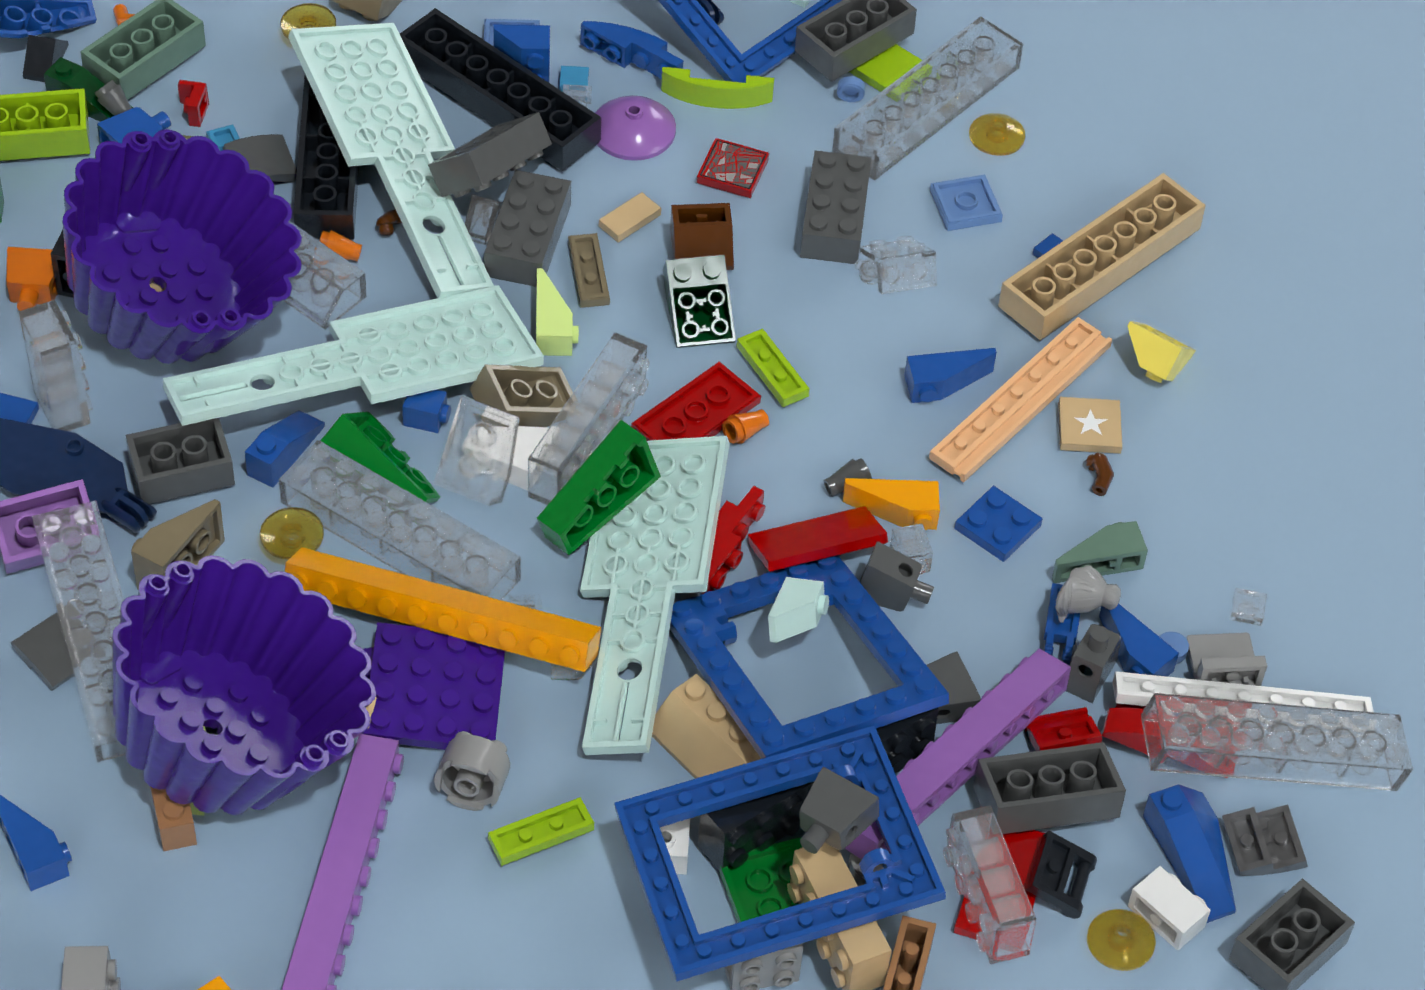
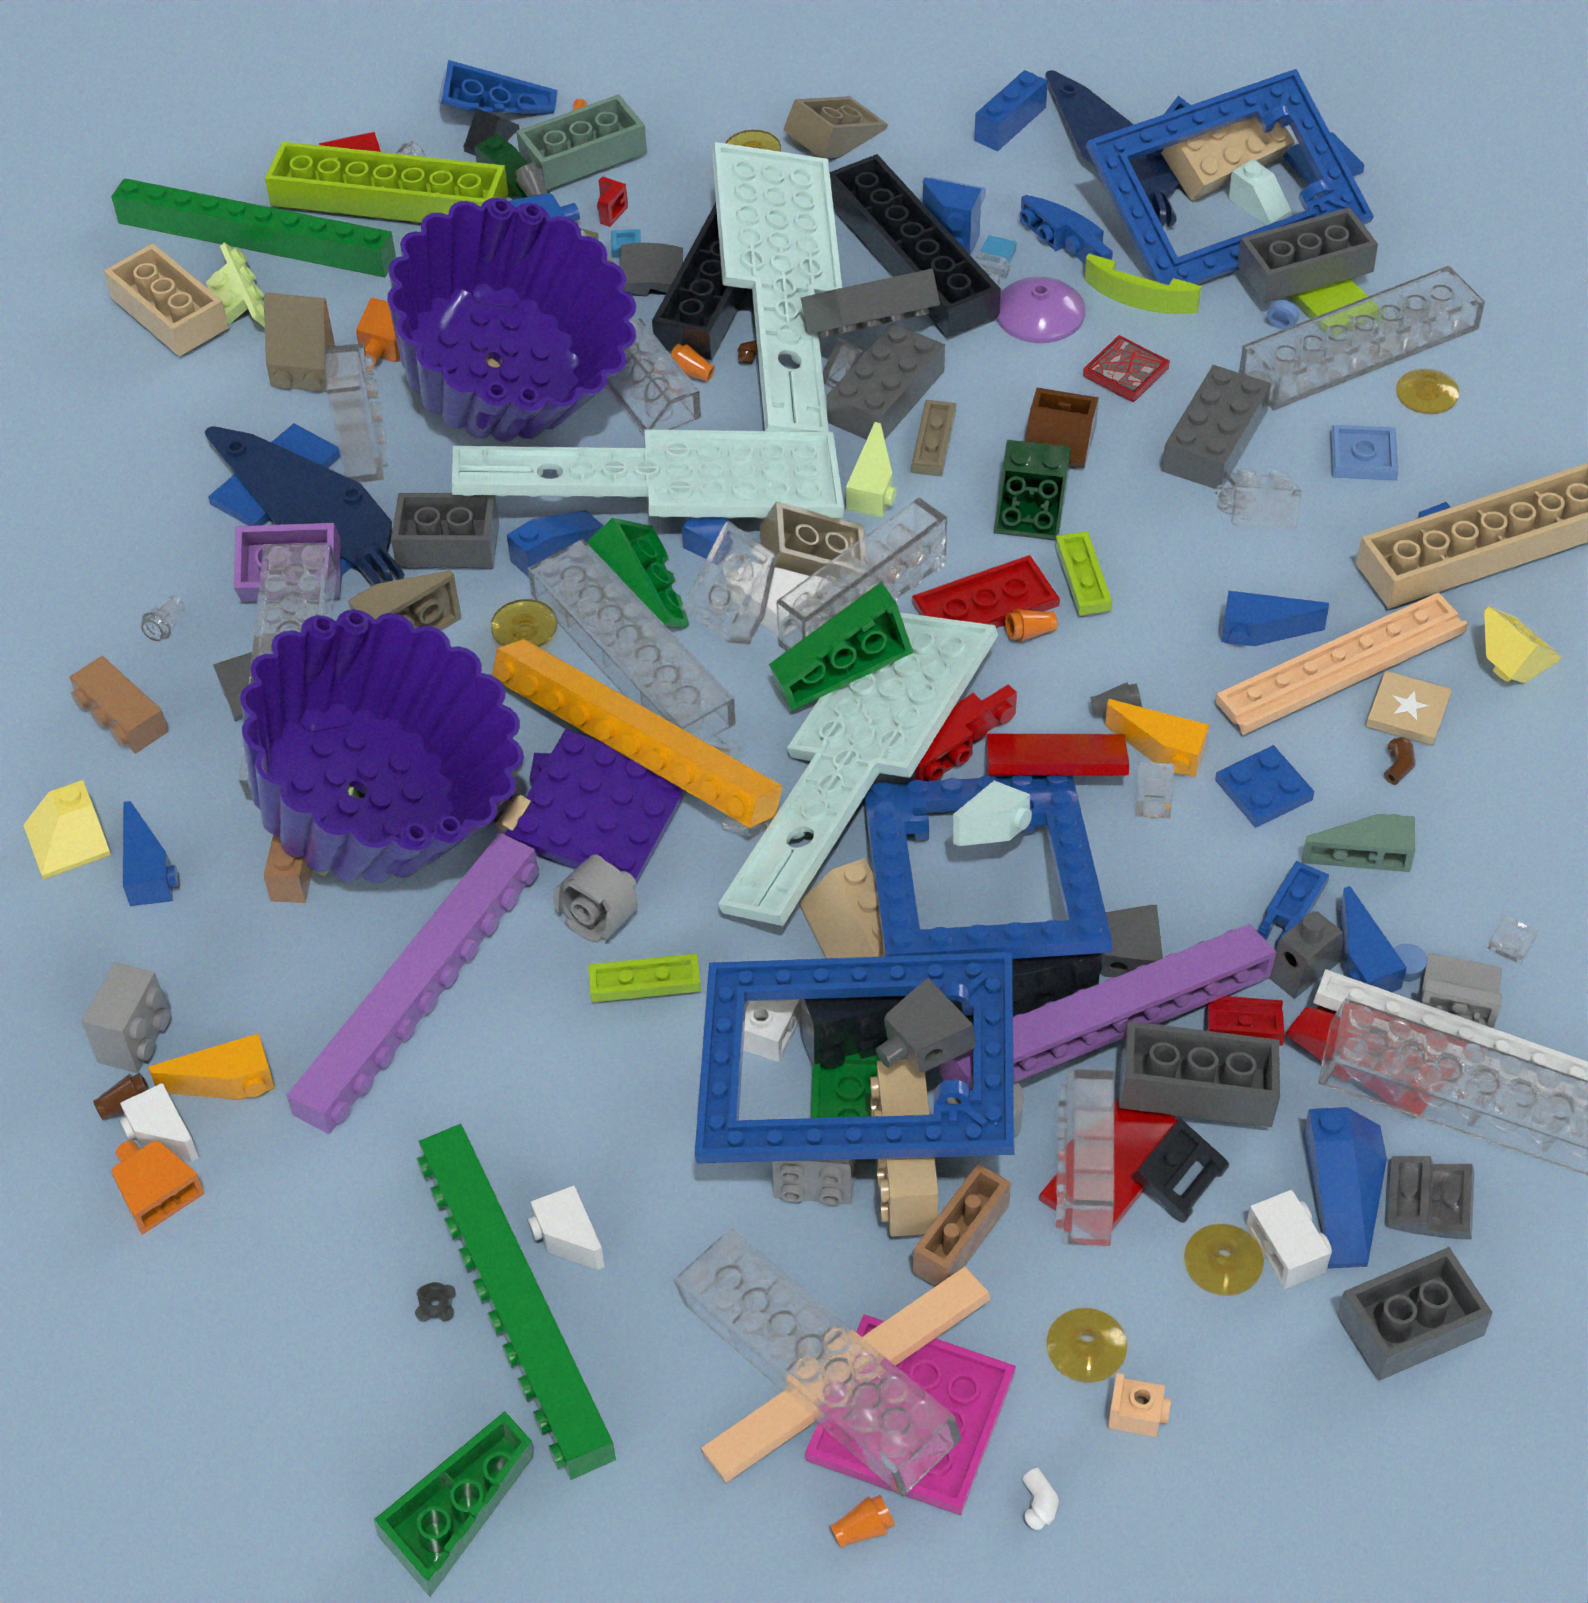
camera: 25 degrees right, 0 degrees up
(630, 217) = (998, 395): tan tile -> none
(893, 579) = (1118, 814): dark grey torso -> none
(1085, 592) = (1320, 876): light grey hair -> none

